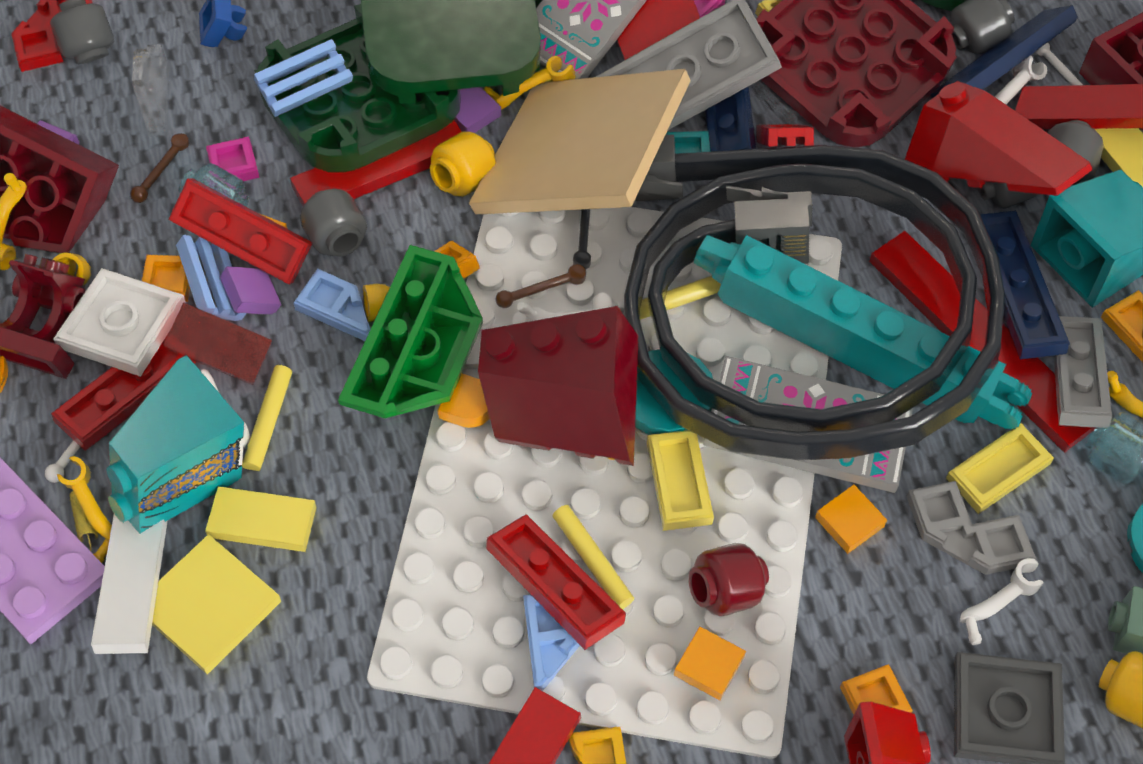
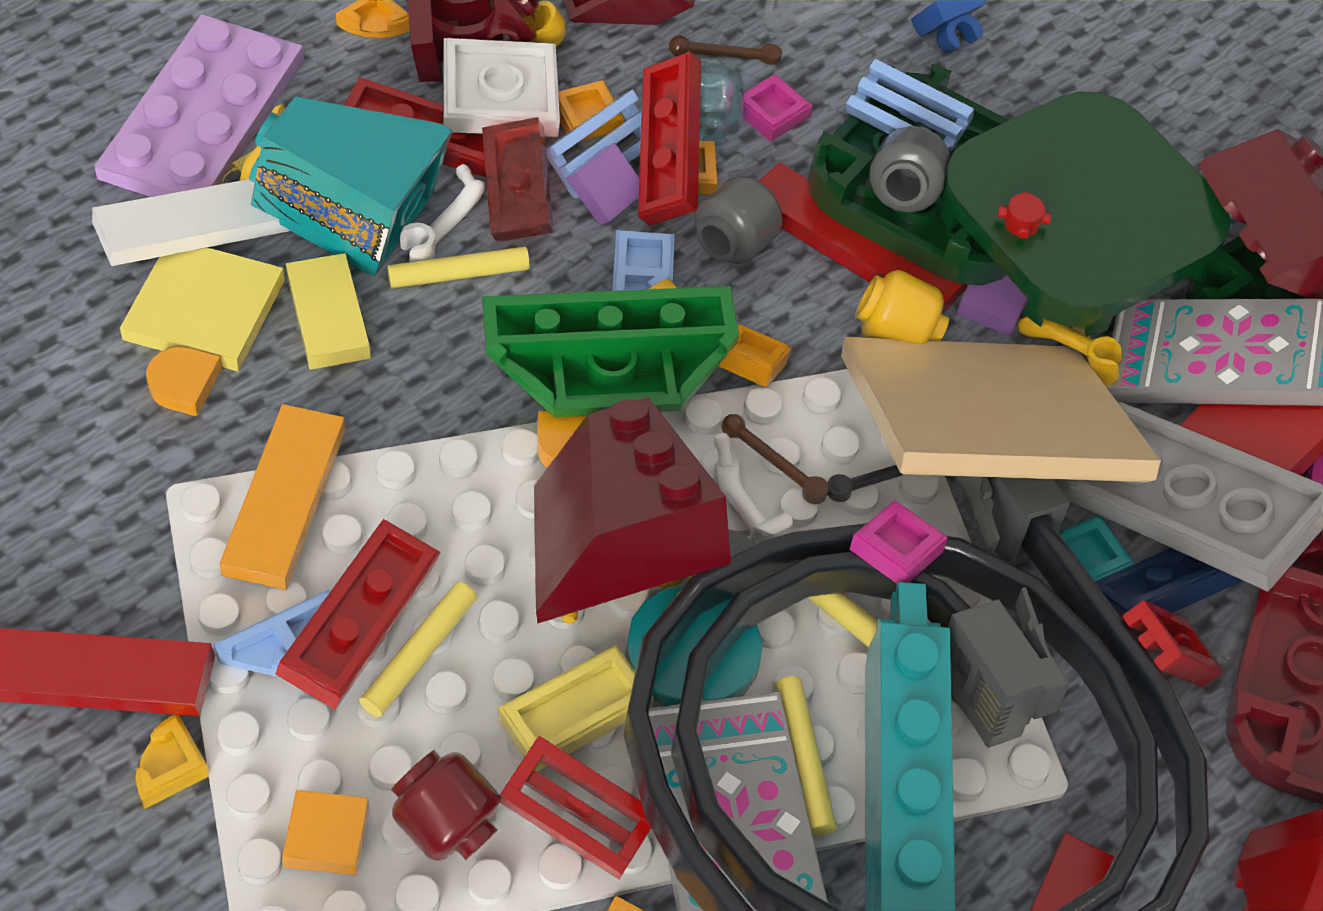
camera: 60 degrees right, 5 degrees down
(273, 641) = (182, 378): none -> light orange tile
(363, 98) = (909, 169): none -> dark grey head
(426, 600) = (283, 497): none -> light orange tile
(451, 50) = (1024, 215): none -> red piece
(666, 237) = (898, 543): none -> dark pink tile
(727, 522) = (561, 829): none -> red tile
(788, 364) = (807, 756): none -> light yellow piece

